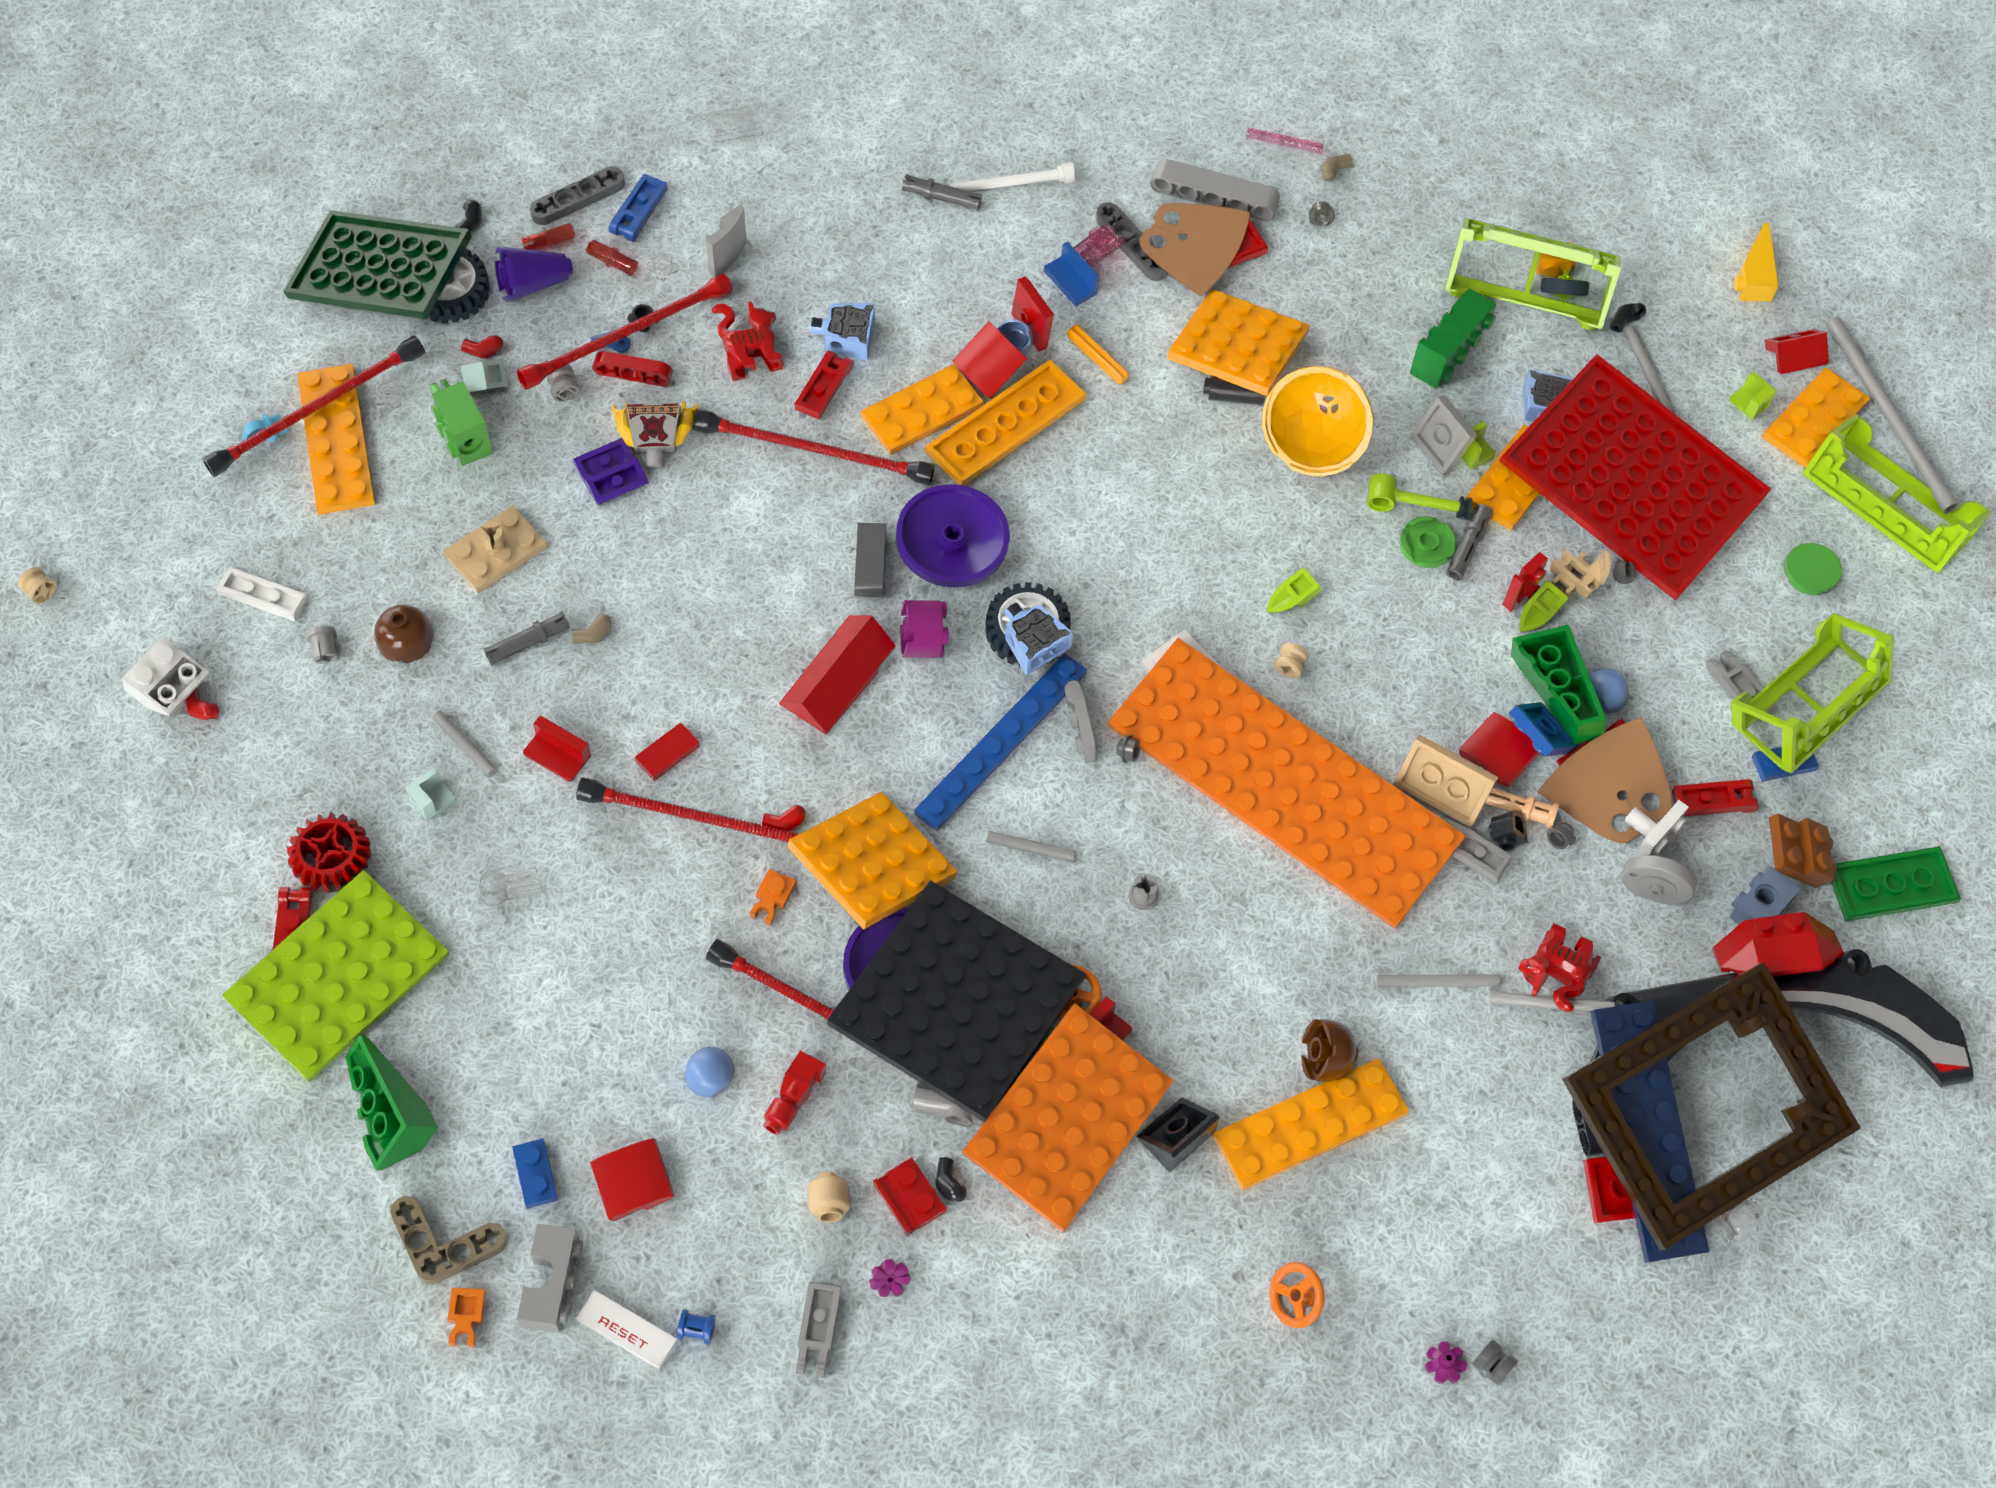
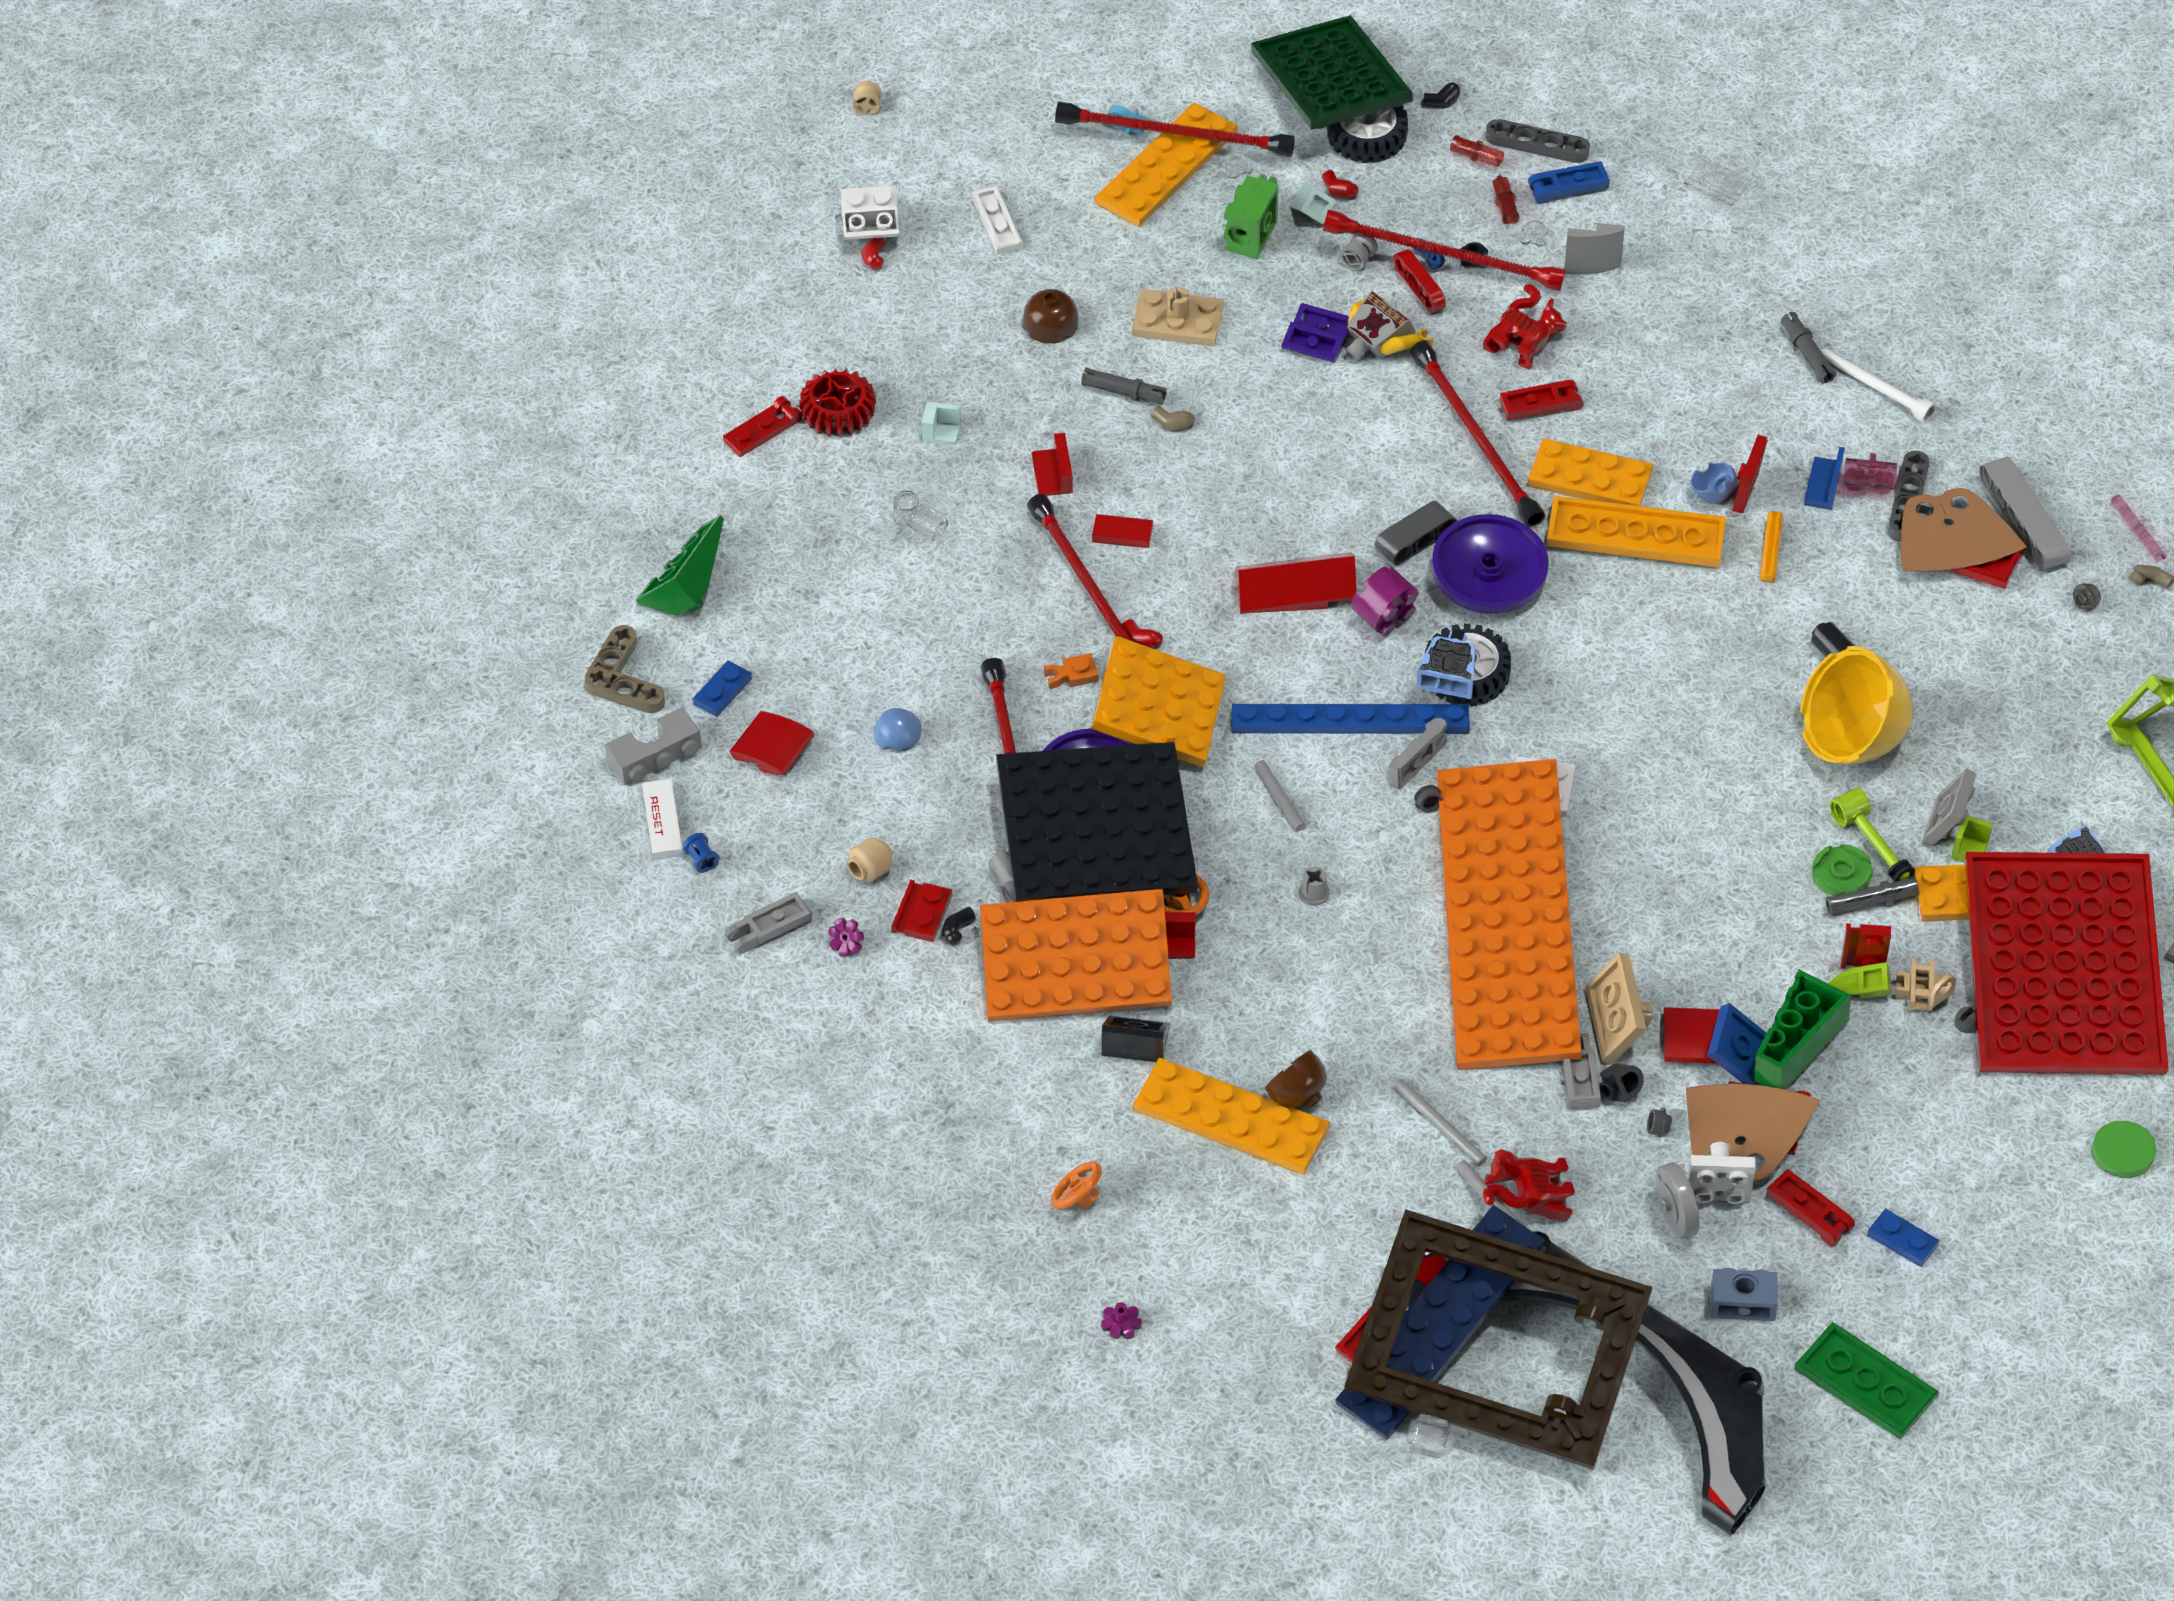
camera: 55 degrees right, 10 degrees down
(323, 643) = (992, 279): light grey bush -> none
(335, 975) = (753, 474): lime plate -> none
(464, 743) = (1003, 415): light grey bar -> none
(464, 1311) = (585, 719): orange plate -> none
(529, 271) = (1431, 160): dark purple cone -> none
(794, 1092) = (932, 786): red piece -> none
(847, 329) = (1607, 378): torso -> none
(989, 360) = (1677, 479): slope -> none
(1238, 342) = (1887, 617): light orange plate -> none
(1291, 660) = (1622, 847): tan wheel -> none
(1294, 591) = (1690, 811): lime plate -> none
(1452, 338) = (2061, 756): green wedge -> none
(1495, 1362) = (1149, 1345): dark grey wheel -> none
(1528, 807) = (1658, 1084): light nougat pin -> none
(1610, 689) = (1833, 1074): medium blue hair -> none
(1738, 678) = (1940, 1167): light grey hinge -> none
(1783, 942) = (1708, 1318): red wedge -> none
(1802, 850) = (1818, 1287): dark orange plate -> none
(1804, 738) = (1909, 1221): lime windscreen -> none

